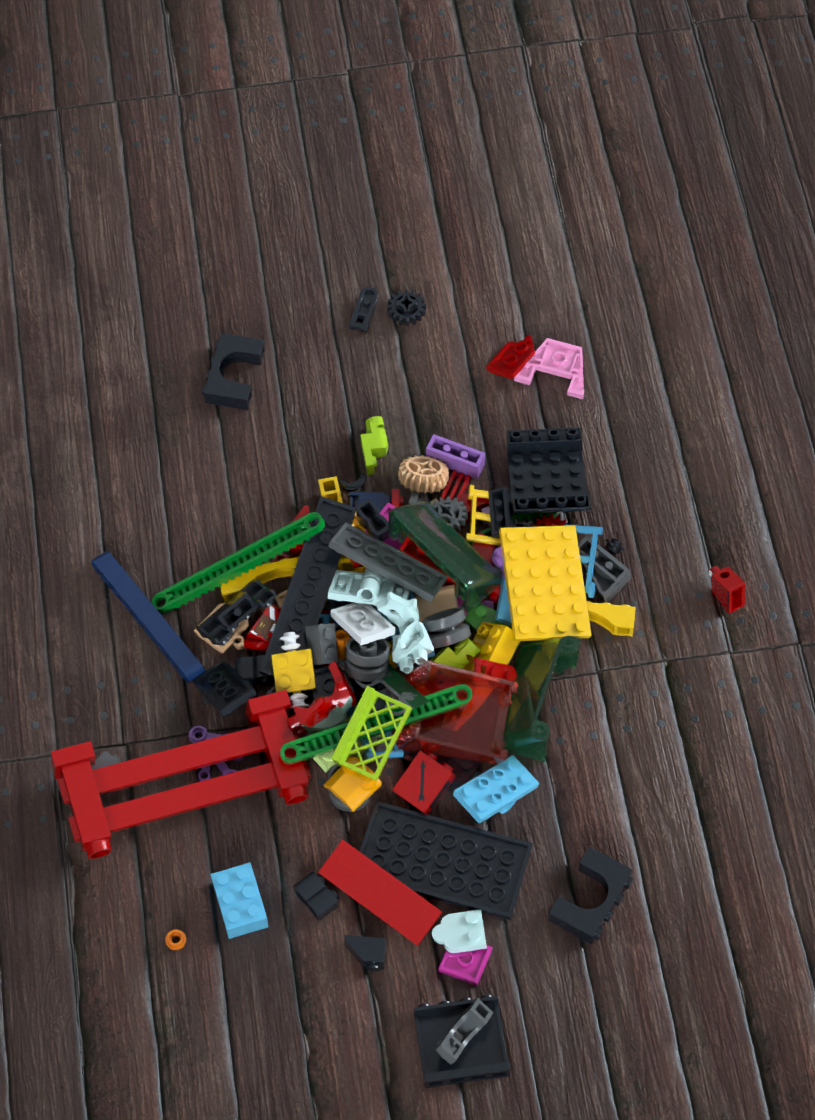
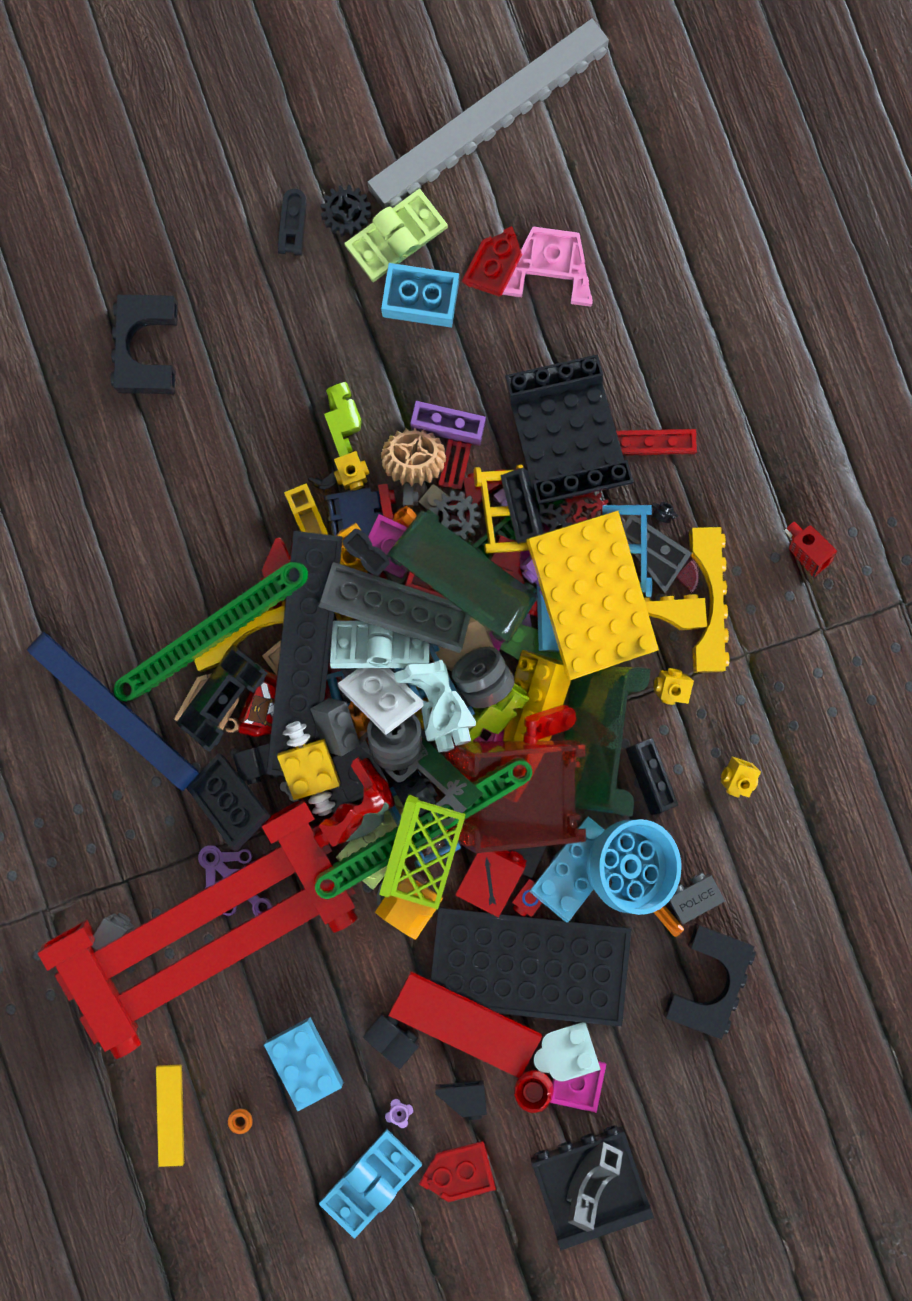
camera: 10 degrees left, 25 degrees up
(118, 926) = (170, 1115): none -> yellow tile
(273, 1006) = (370, 1183): none -> medium azure plate
(307, 951) = (401, 1120): none -> lavender plate
(351, 1013) = (459, 1173): none -> red tile
(372, 477) = (347, 464): none -> yellow brick
(426, 953) = (533, 1091): none -> red hair
(441, 328) = (396, 234): none -> yellowish green plate
(450, 808) = (525, 901): none -> red brick
(451, 368) = (420, 295): none -> medium azure brick
(526, 263) = (489, 115): none -> light grey brick
(550, 768) = (659, 858): none -> medium azure wheel
(563, 841) = (669, 921): none -> orange axle
(570, 736) = (651, 777): none -> black slope
(590, 829) = (696, 897): none -> dark grey brick
(606, 668) = (673, 686): none -> yellow brick
(618, 498) = (657, 442): none -> red tile
(627, 595) = (689, 576): none -> clear pink tile
(633, 646) = (706, 551): none -> yellow arch
(647, 738) = (740, 777): none -> yellow brick

